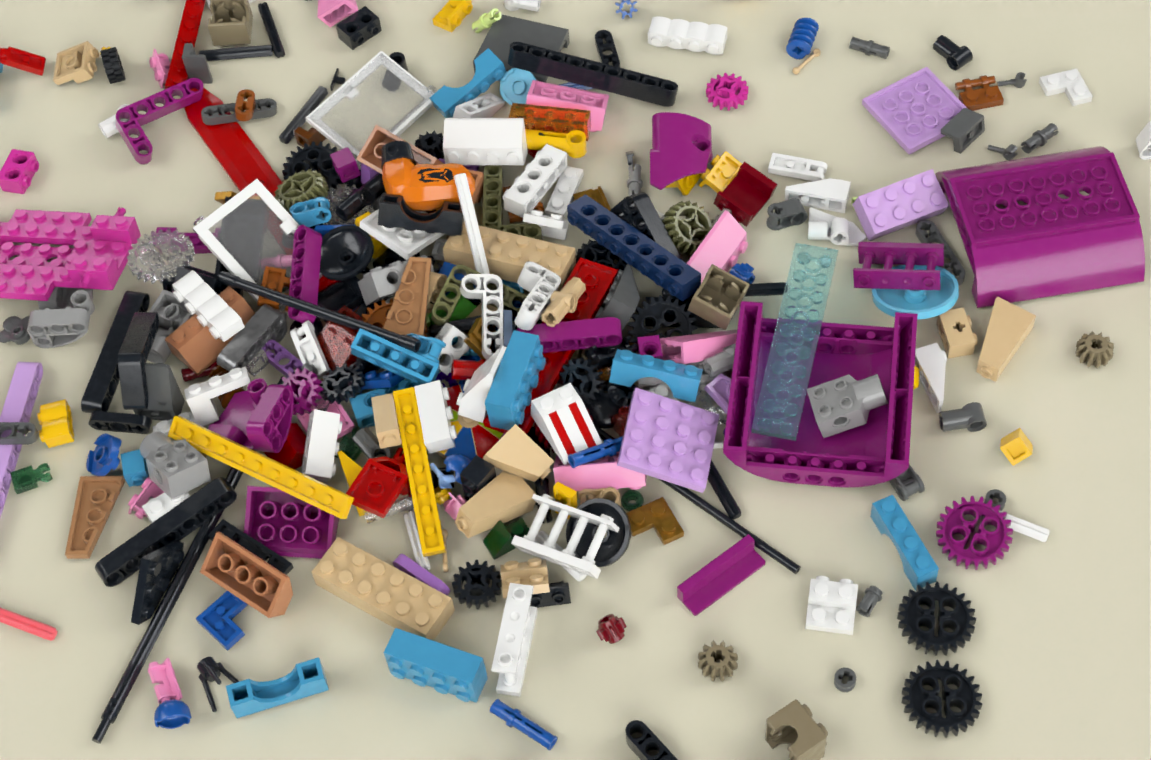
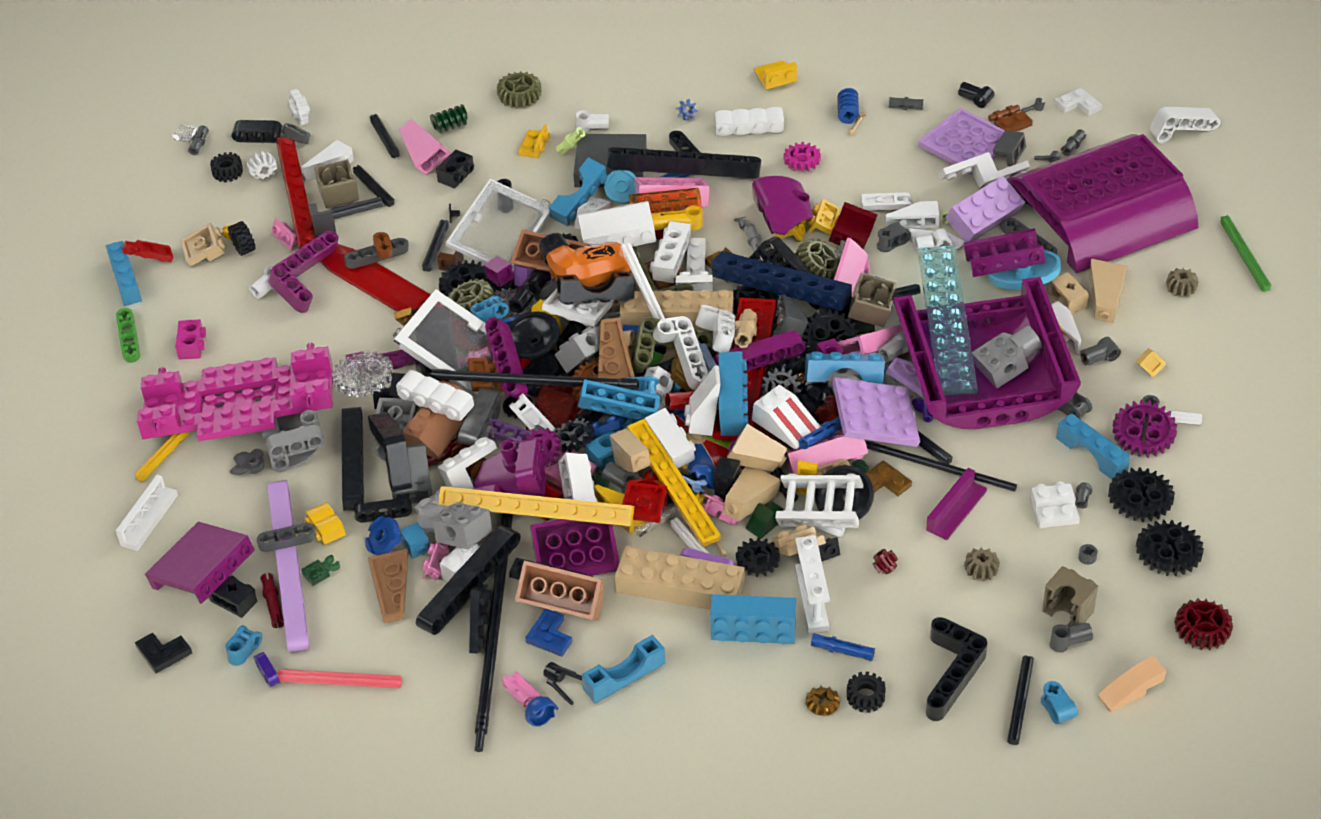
camera: 20 degrees left, 10 degrees down
(920, 154) = (982, 169): none -> white bracket

